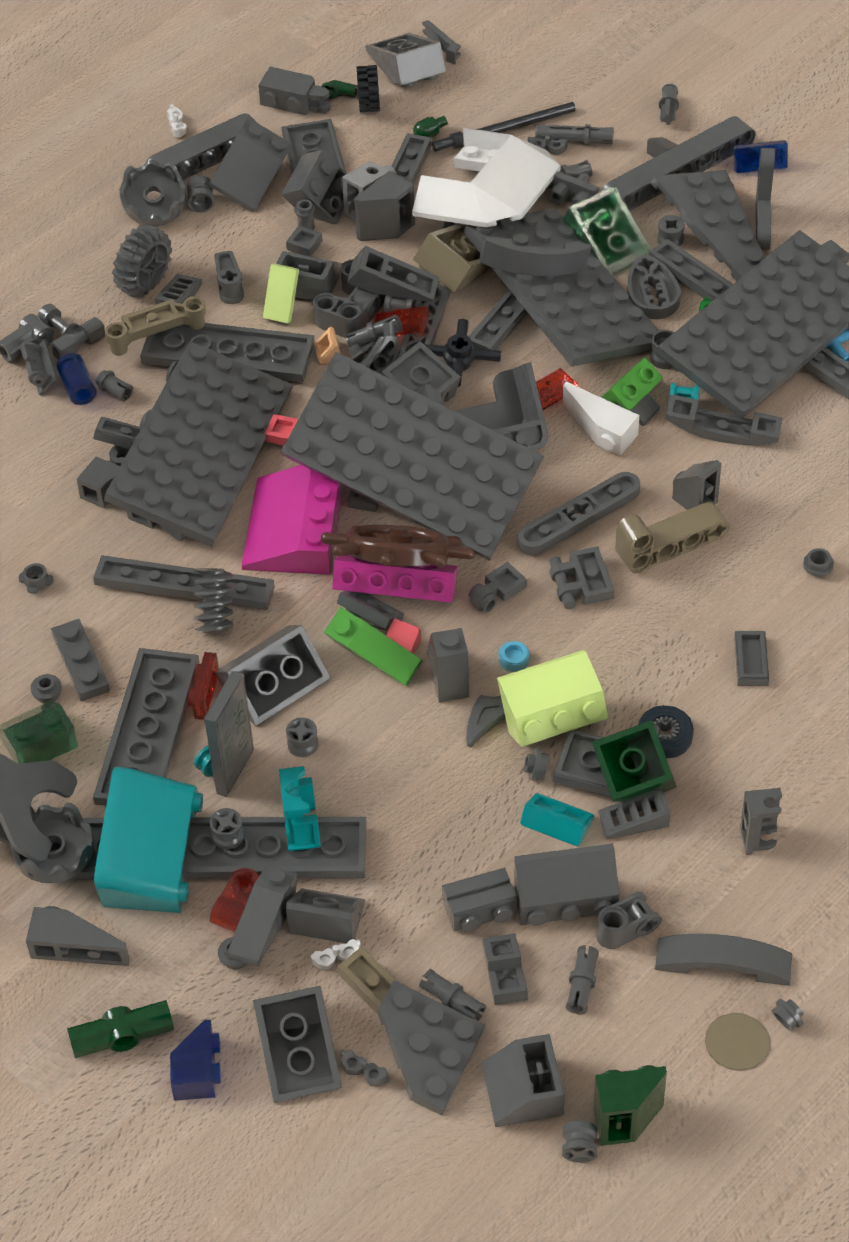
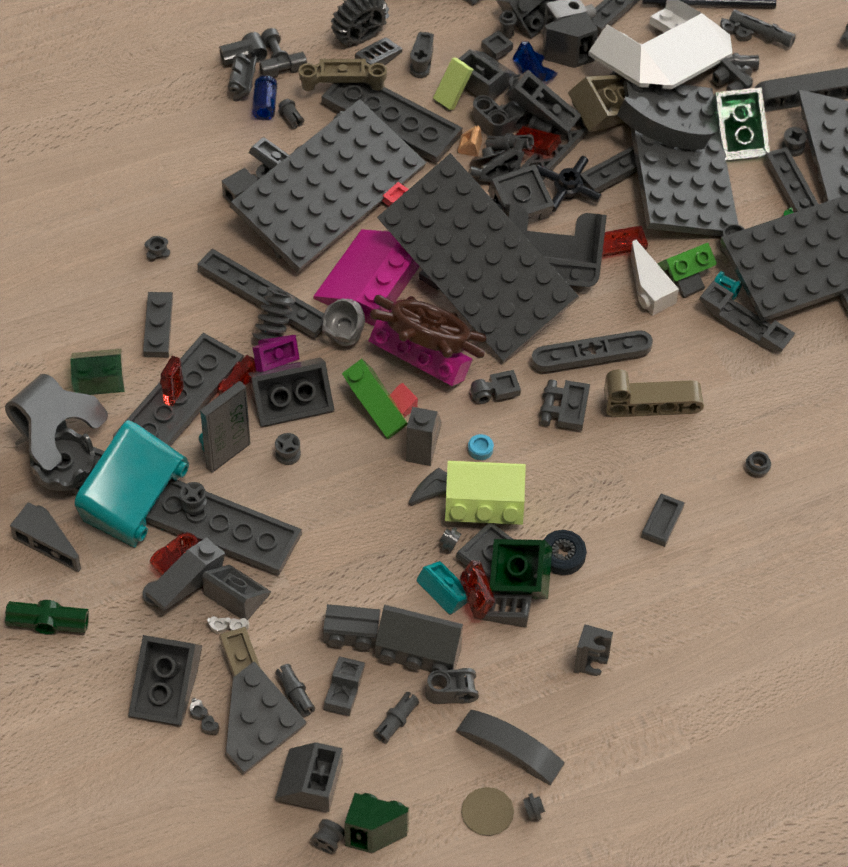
camera: 20 degrees right, 5 degrees up
(49, 693) = (122, 342): dark grey plate -> none
(137, 708) = (172, 380): none -> clear red plate
(194, 1066) = (85, 663): clear blue slope -> none
(235, 637) = (275, 352): none -> magenta slope
(295, 577) = (344, 321): none -> light grey hair
(299, 800) = (254, 491): teal piece -> none
(346, 244) = (530, 60): none -> clear blue tile
(370, 608) = (390, 367): dark grey plate -> none
(598, 805) = (477, 589): none -> clear red plate
(658, 145) = (827, 62): dark grey slope -> none
(661, 279) = (764, 186): dark grey piece -> none
(697, 484) = (694, 364): dark grey slope -> none

